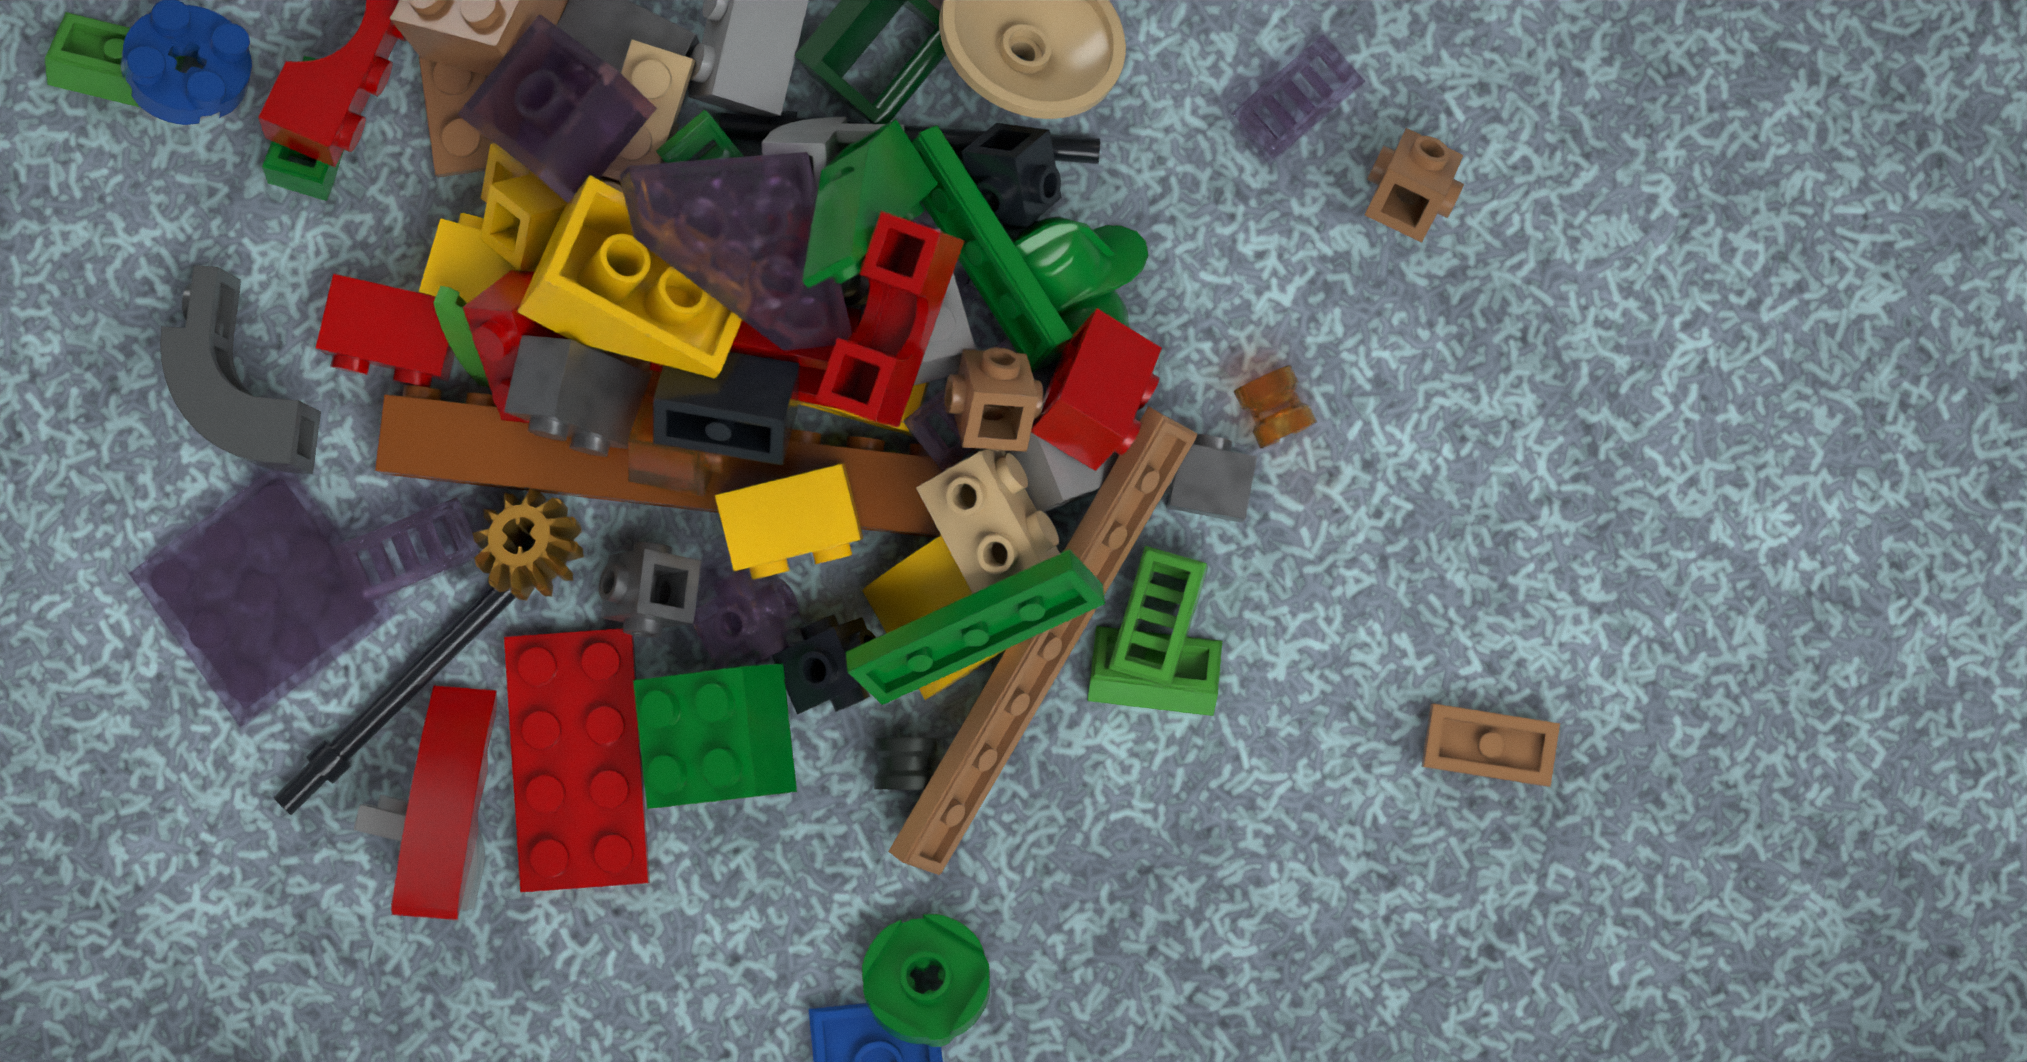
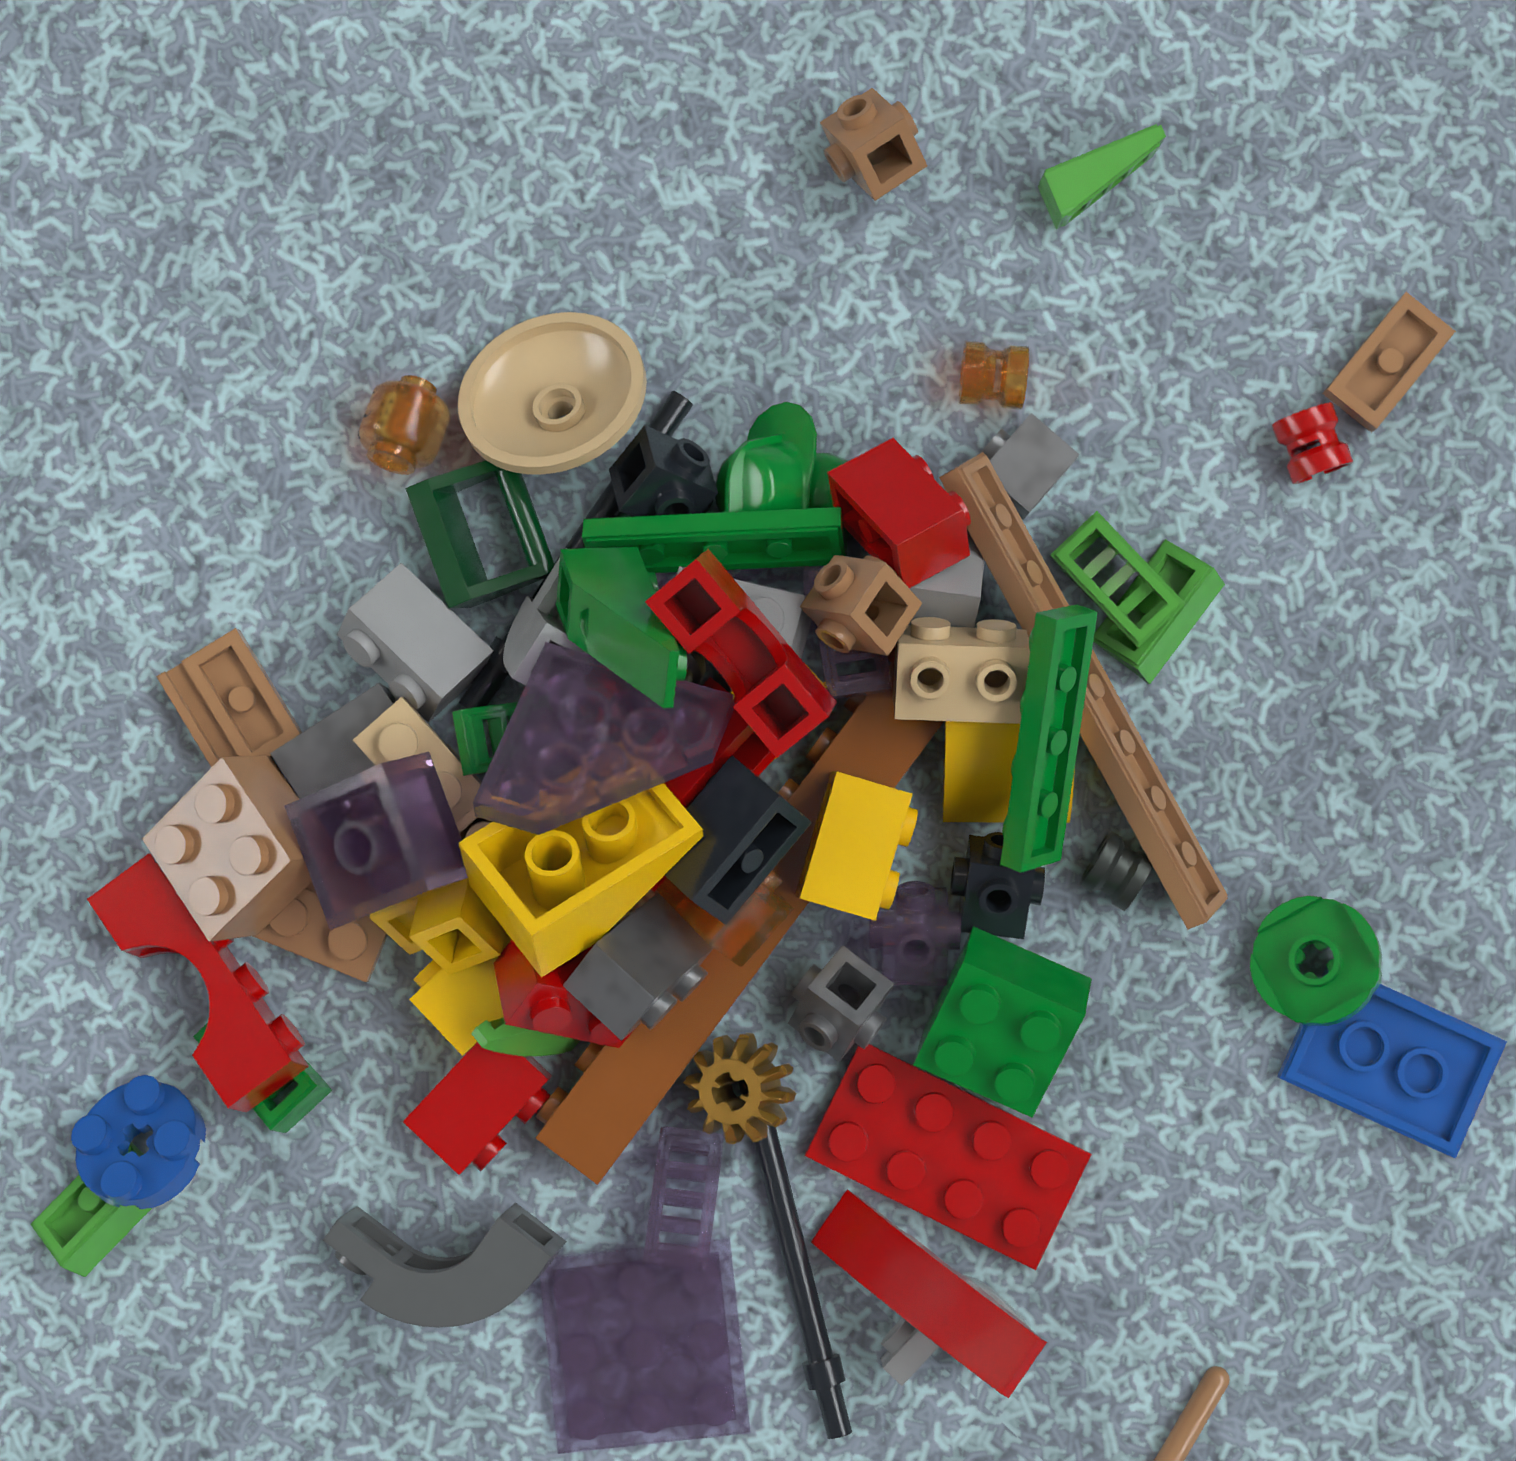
camera: 60 degrees left, 0 degrees up
(1255, 129) = (750, 251): clear purple slope -> none
(1391, 710) = (1305, 430): none -> red wheel
(1495, 388) = (1086, 178): none -> bright green slope

